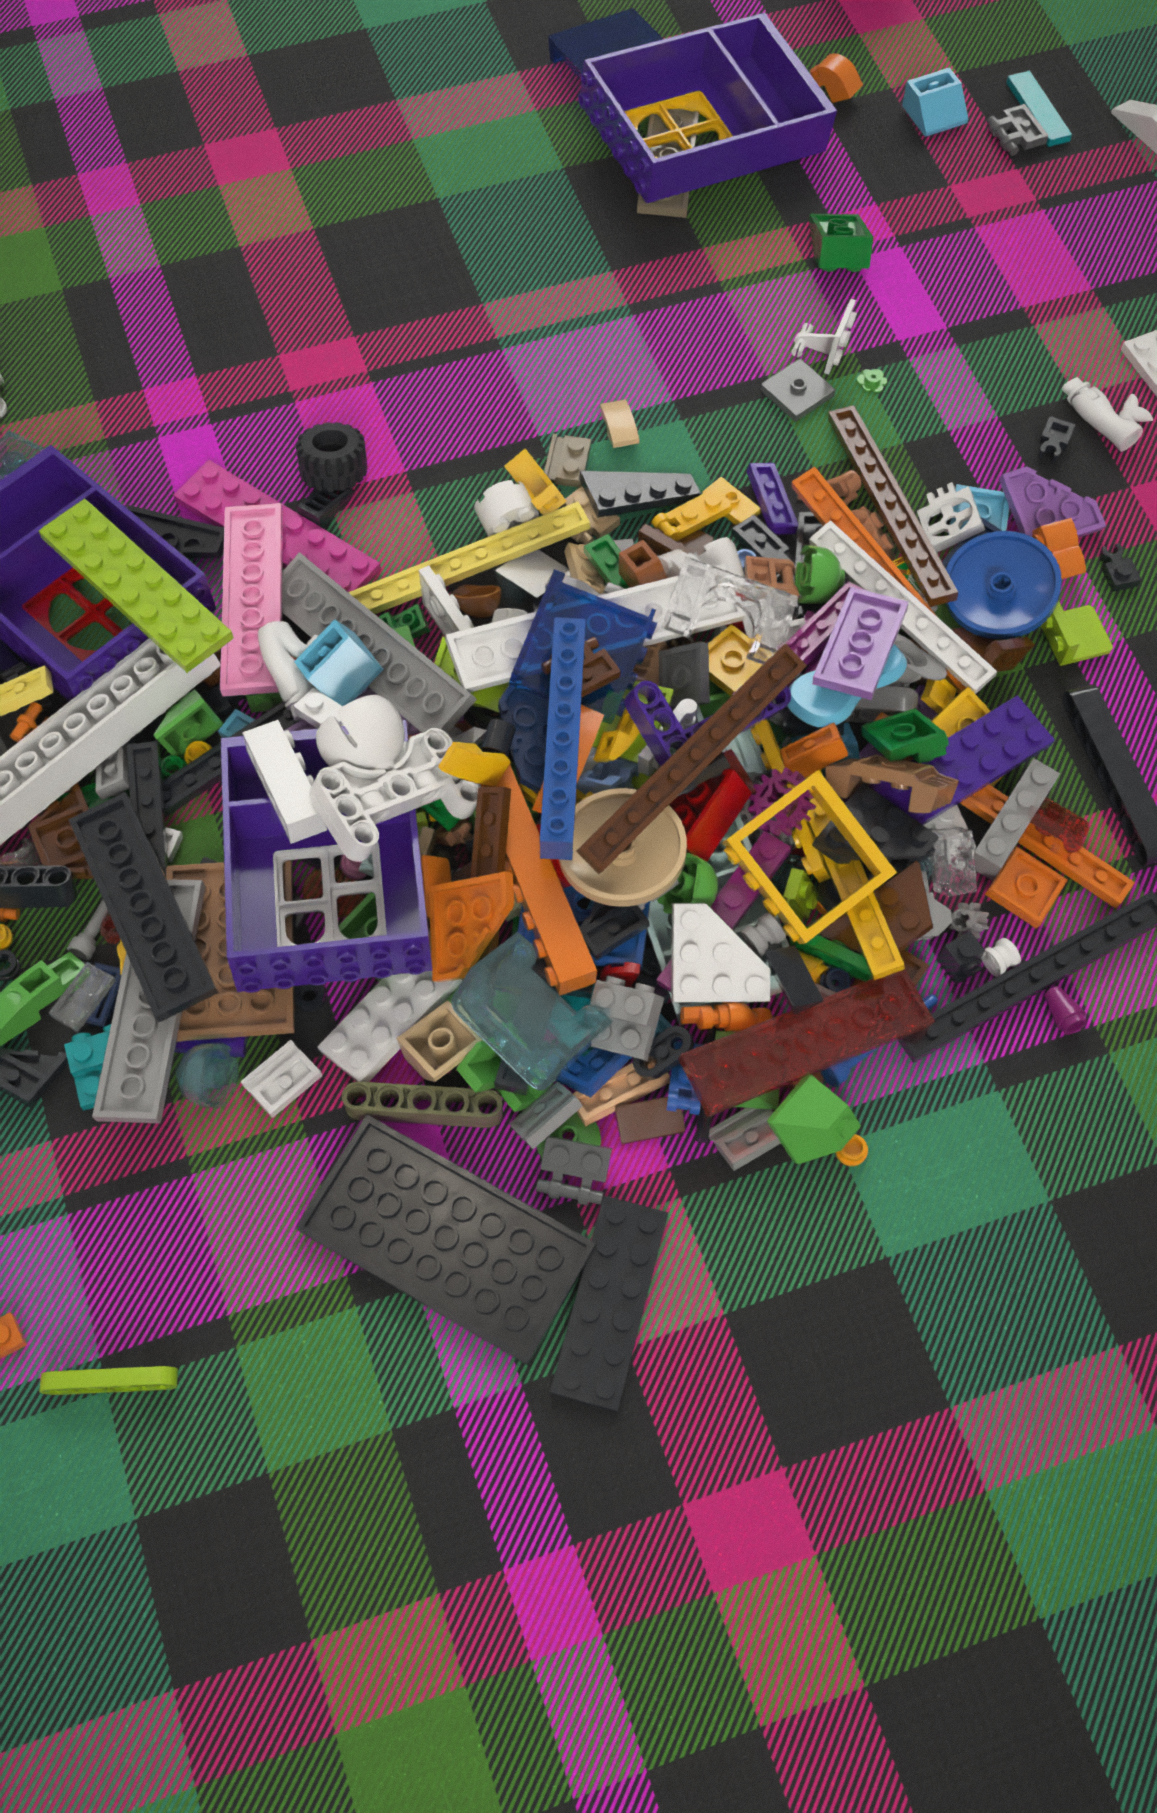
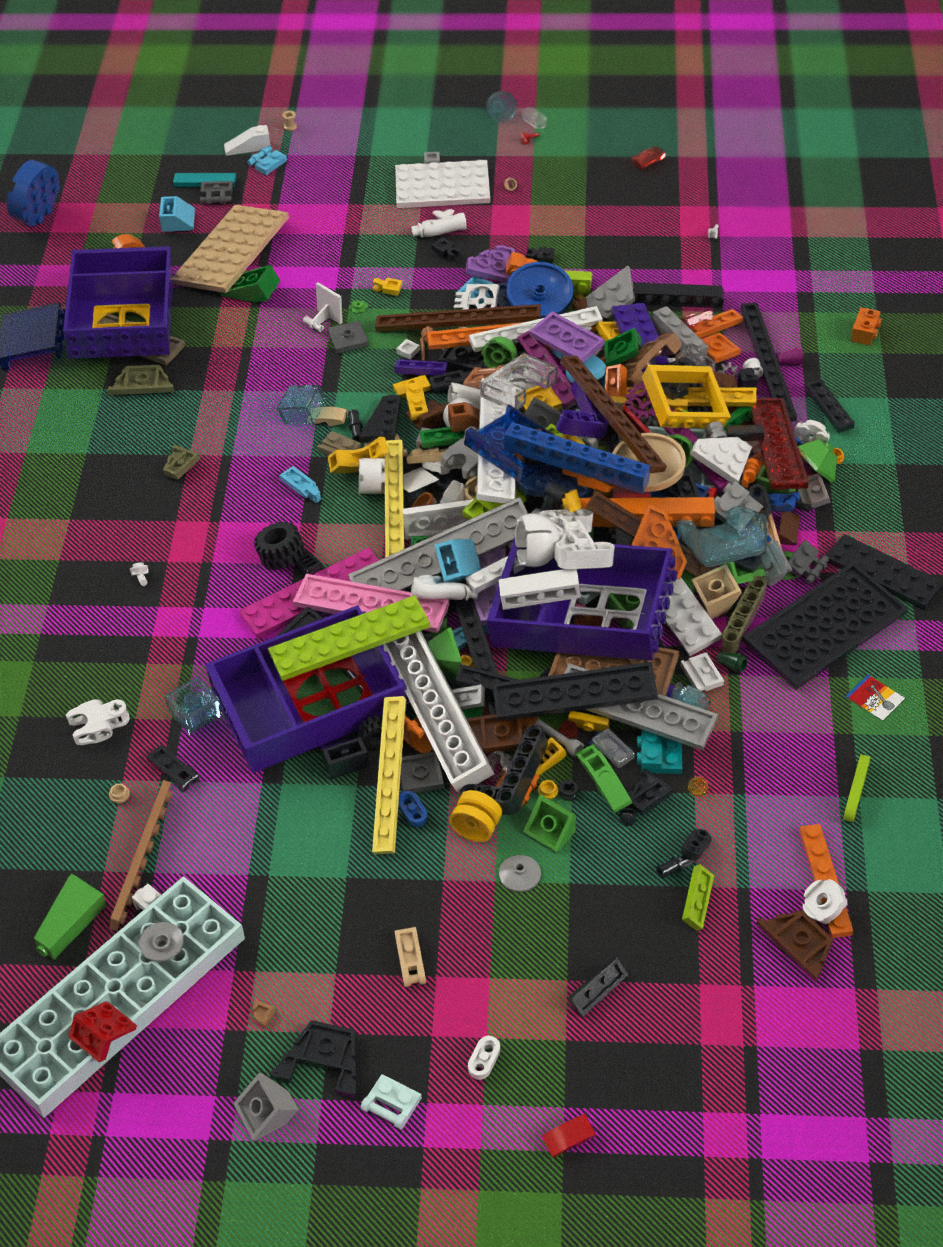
camera: 65 degrees left, 15 degrees down
(55, 1140) = (698, 786): none -> clear yellow plate
(70, 926) = (554, 758): none -> yellow slope
(243, 330) = (140, 570): none -> white plate
(319, 1118) = (733, 661): none -> dark green cone
(324, 1362) = (875, 697): none -> sticker
(454, 296) = (180, 462): none -> olive wing
(470, 441) = (301, 484): none -> medium azure hinge
(591, 198) = (141, 380): none -> olive wing
(616, 382) = (301, 404): none -> clear light blue brick
(616, 461) = (355, 424): none -> black pin
(803, 463) = (408, 349): none -> white plate
(865, 1092) = (812, 427): none -> white plate
(906, 188) = (230, 248): none -> tan plate
(929, 400) = (389, 286): none -> yellow plate
(971, 1106) = (829, 405): none -> black plate
(1060, 692) = (613, 292): none -> light grey wing
(1126, 165) = (269, 162): none -> medium azure plate

